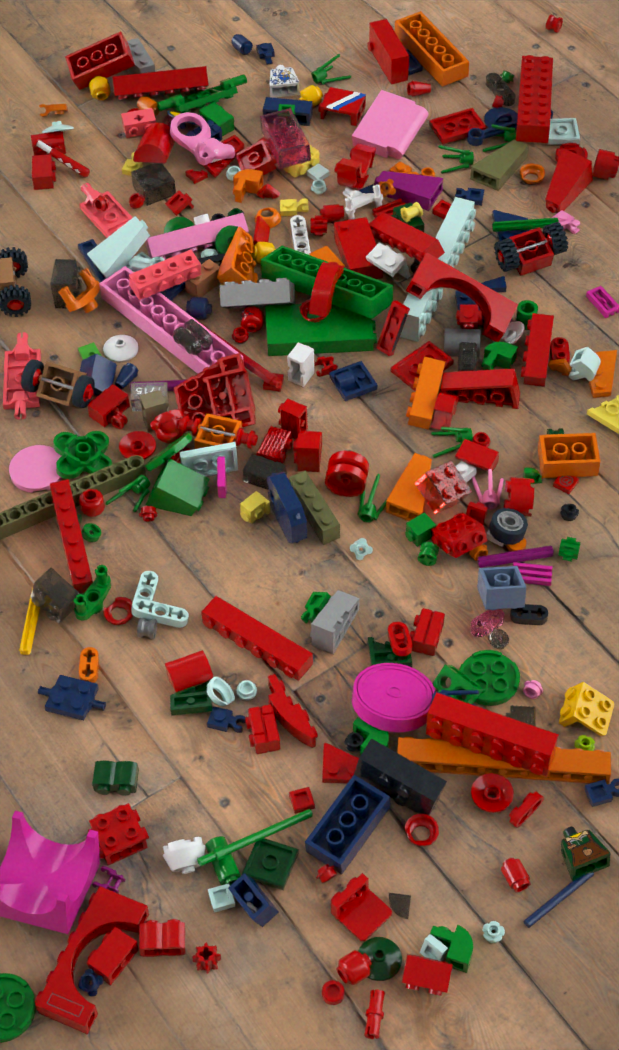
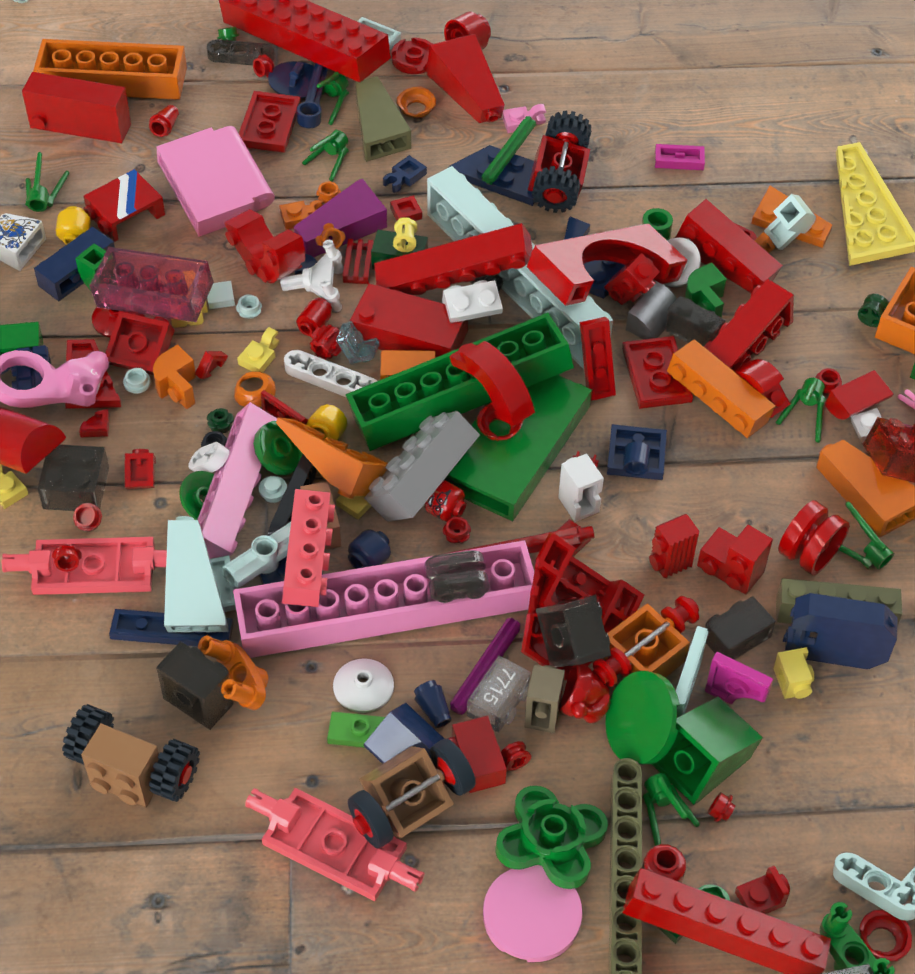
camera: 60 degrees left, 0 degrees up
(109, 552) = (765, 892): none -> red bracket
(137, 443) = (586, 744): red dish -> none
(192, 395) = (573, 631): none -> clear smoke brick
(275, 444) = (698, 585): red brick -> none
(325, 235) = (353, 346): none -> clear light blue bracket

